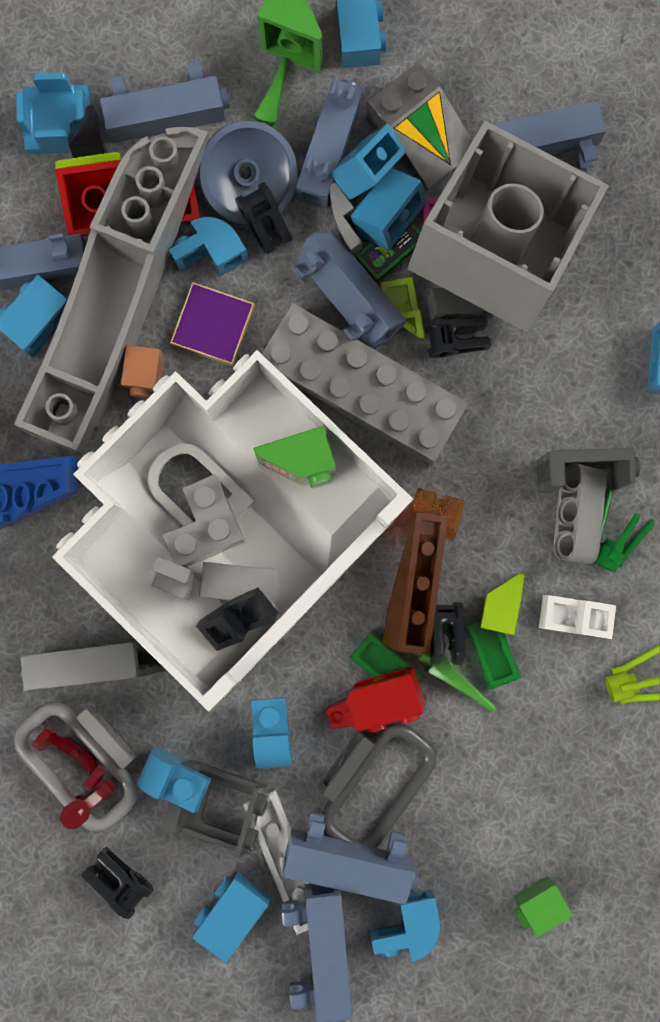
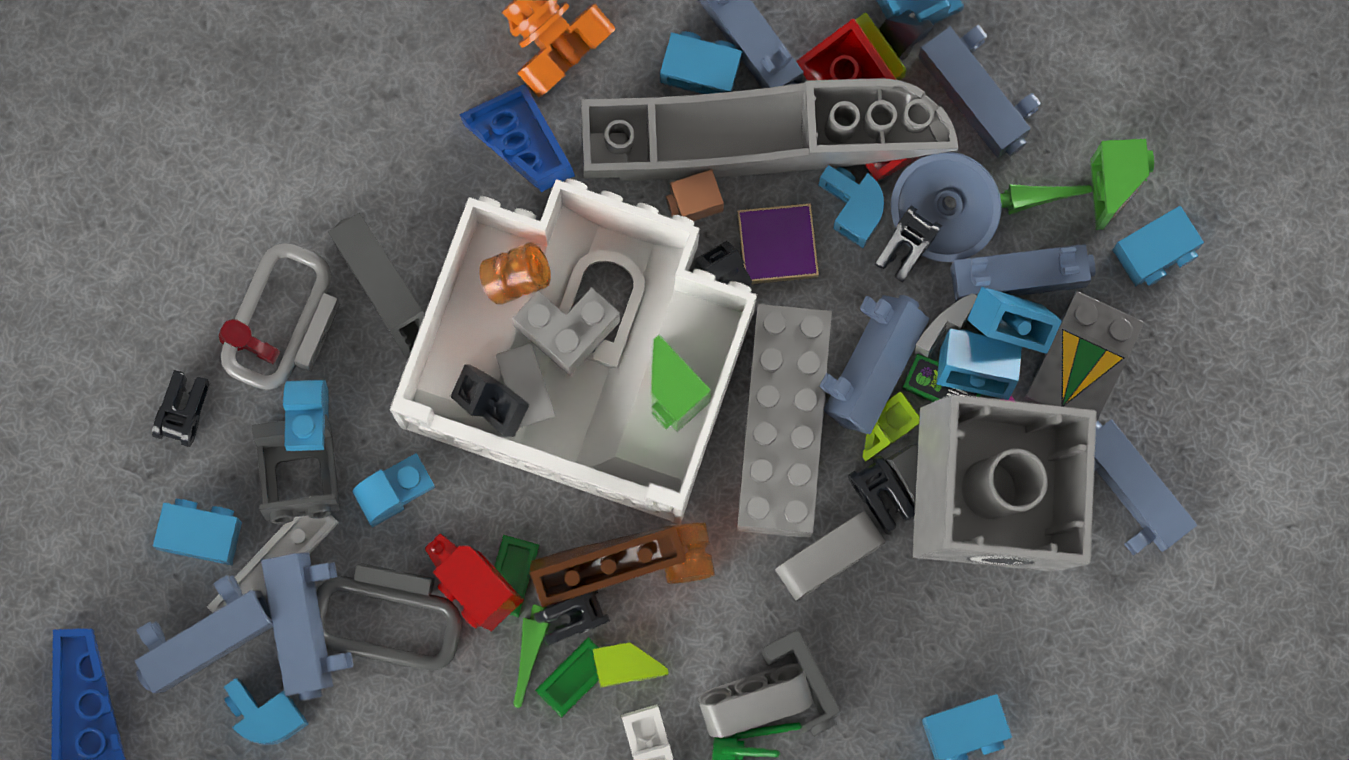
camera: 65 degrees right, 5 degrees down
(73, 749) = (293, 276): dark red piece -> none
(137, 547) = (515, 273): none -> clear orange wheel
(172, 578) = (500, 320): light grey slope -> none
(209, 370) = (724, 264): none -> black slope
(488, 400) = (830, 555): none -> light grey beam

